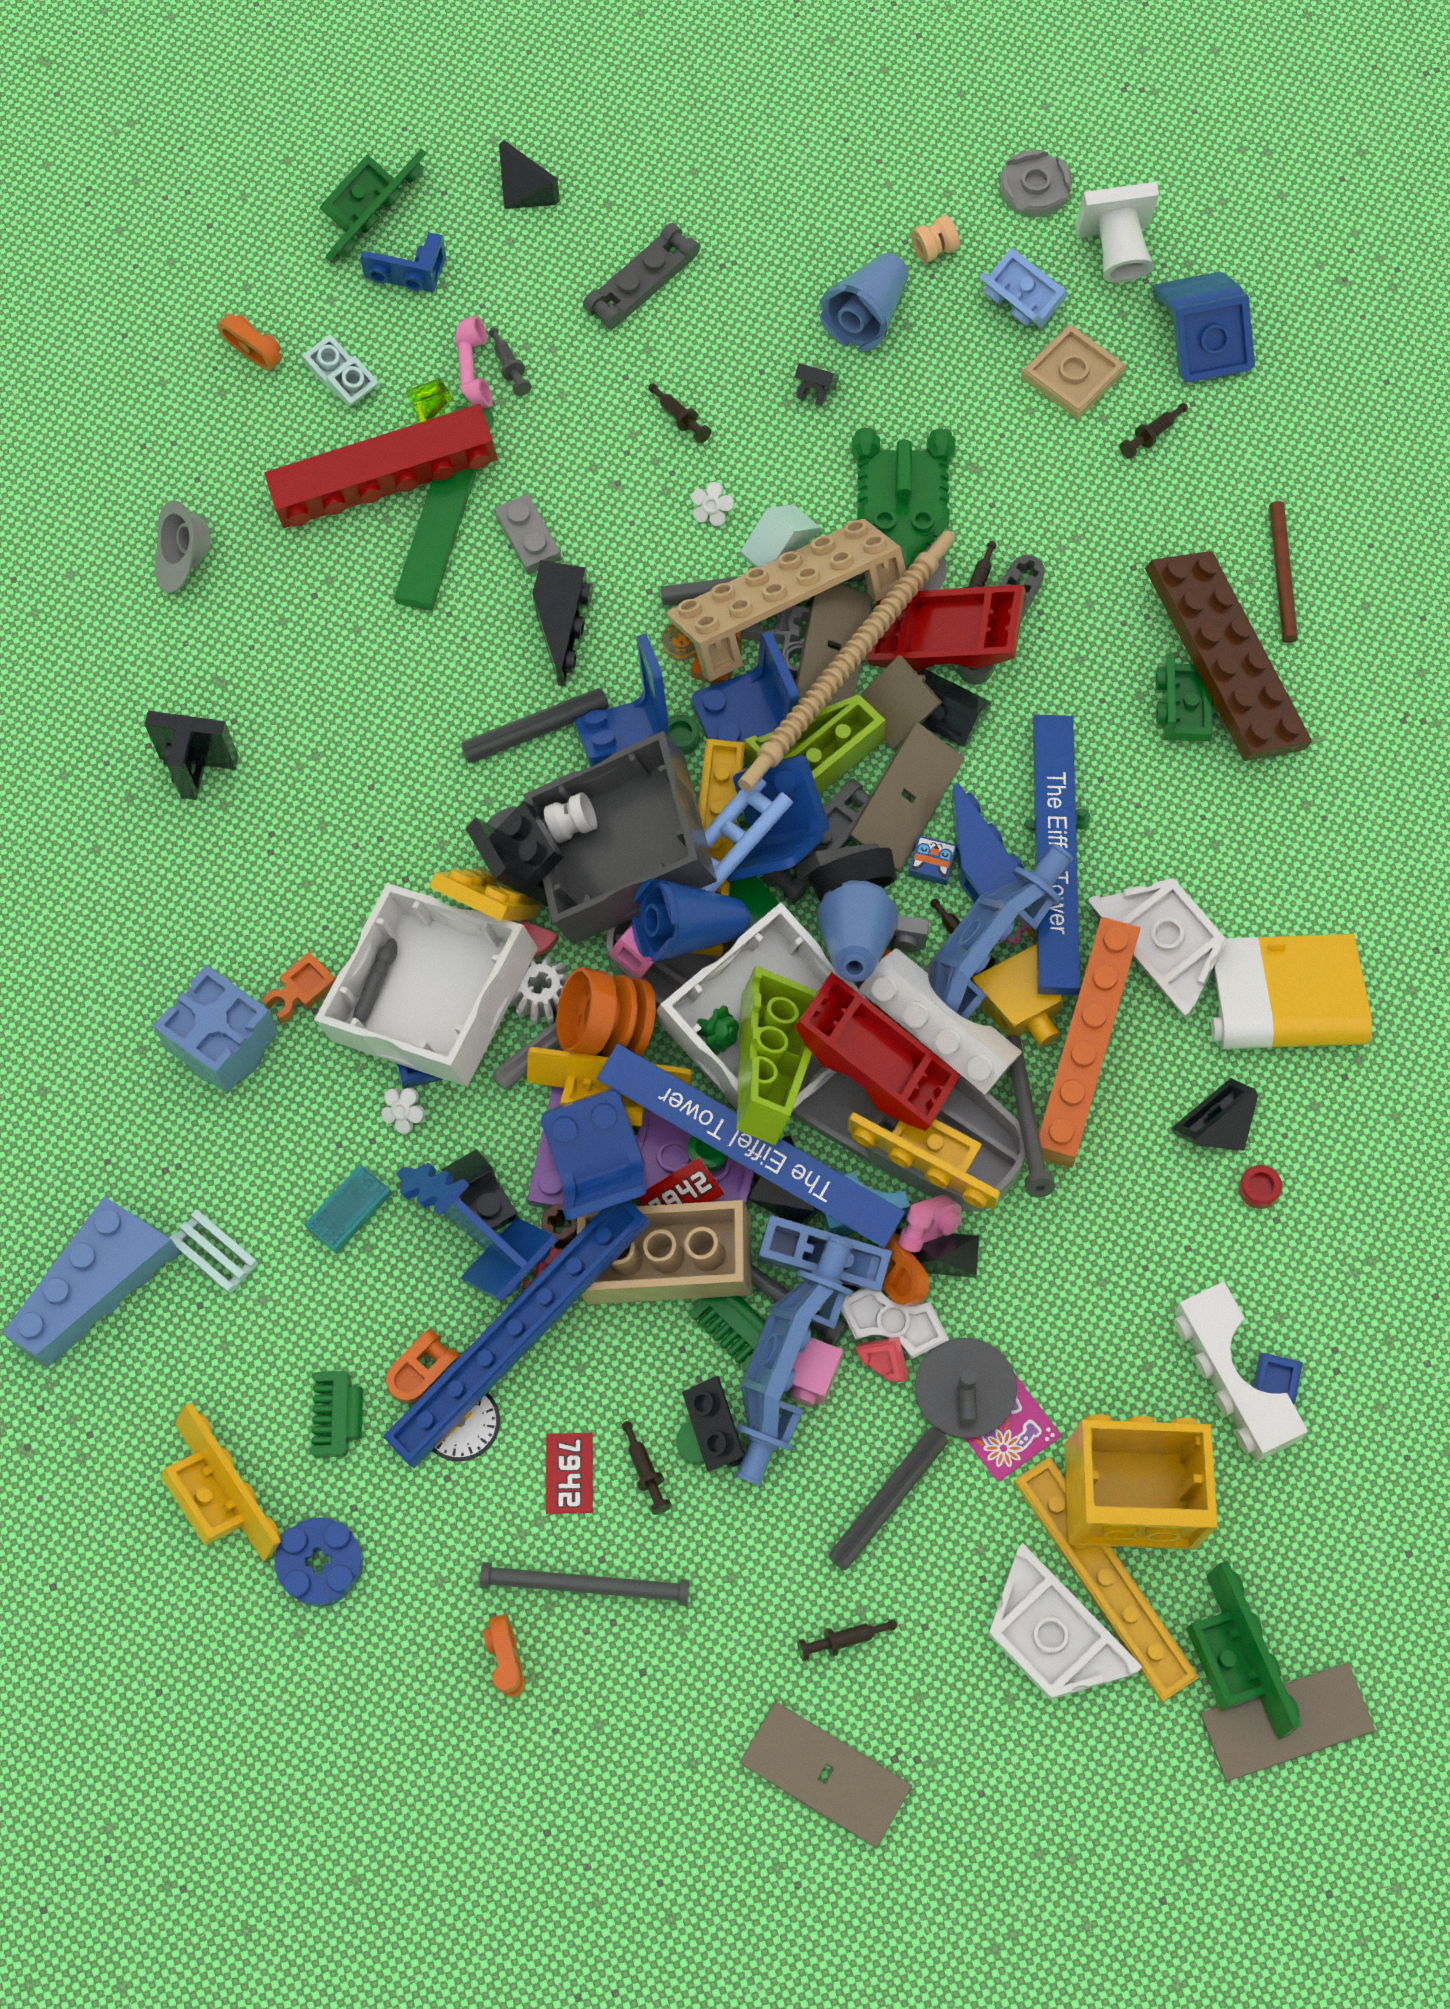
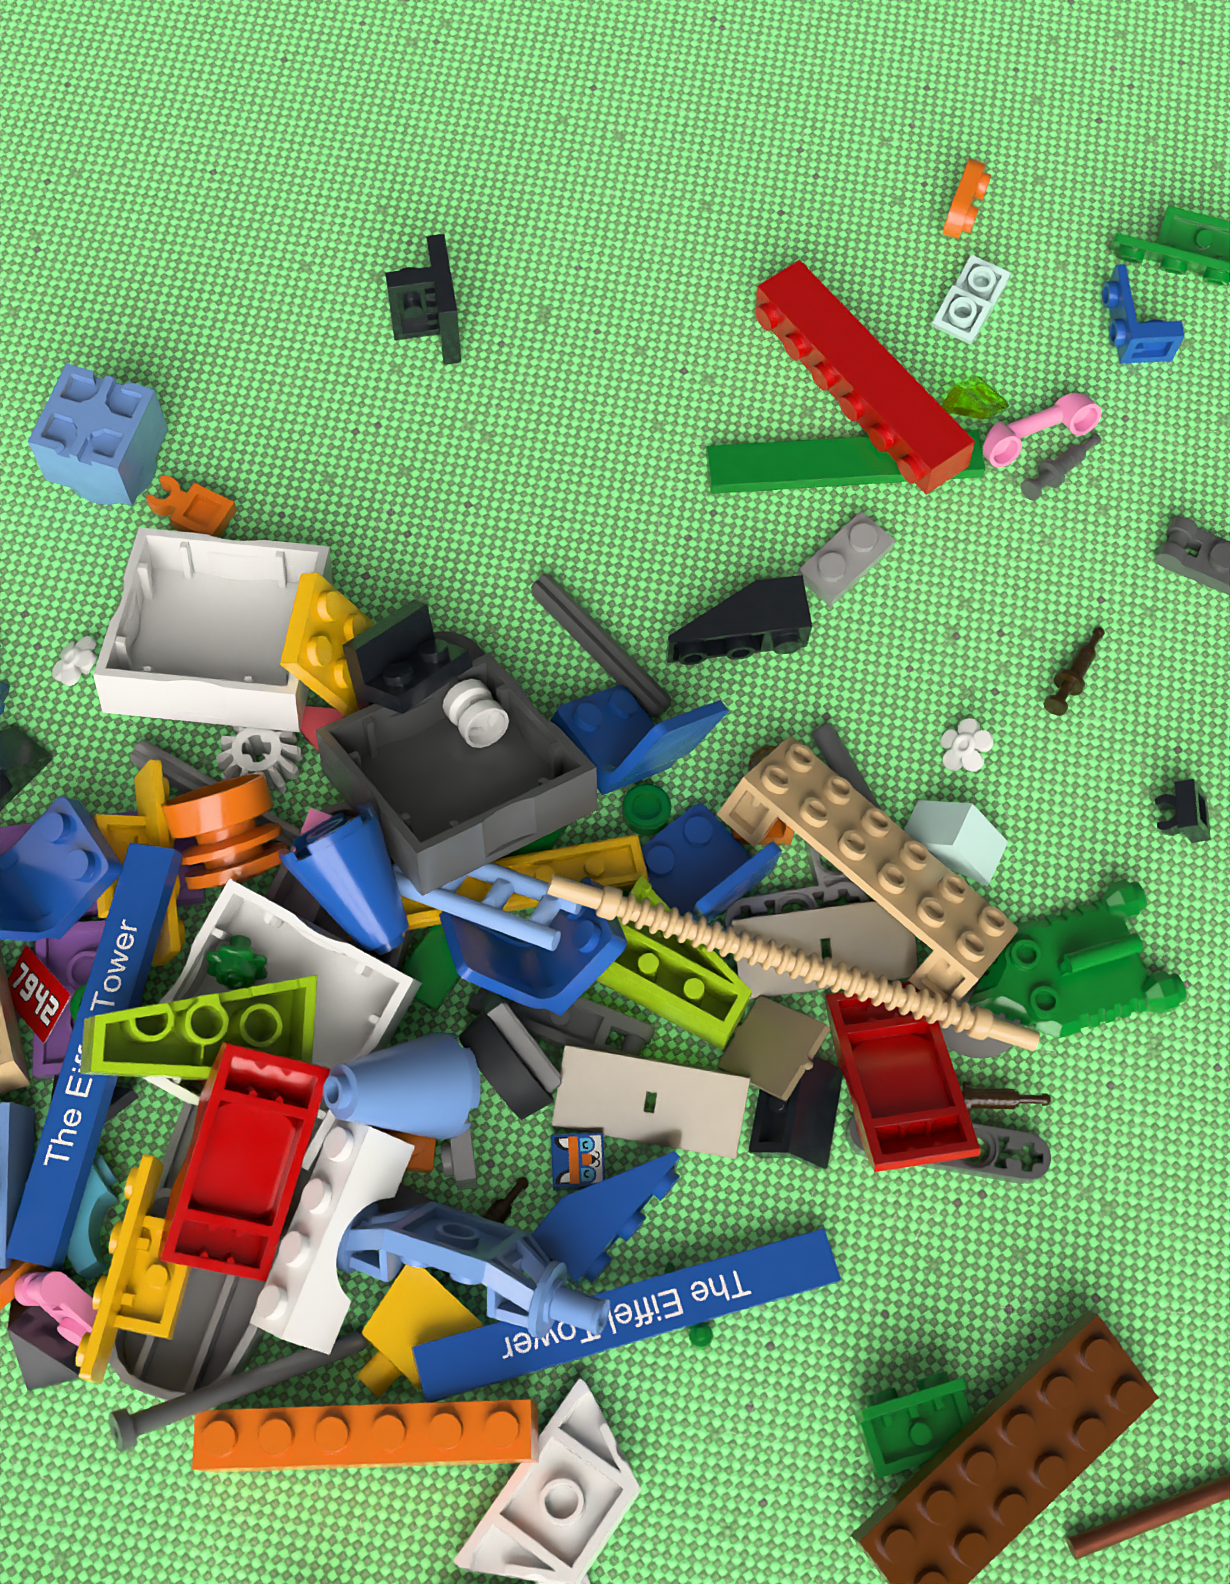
camera: 65 degrees right, 0 degrees up
(181, 545) = (688, 221): light grey piece -> none
(376, 978) = (217, 580): dark grey piece -> none

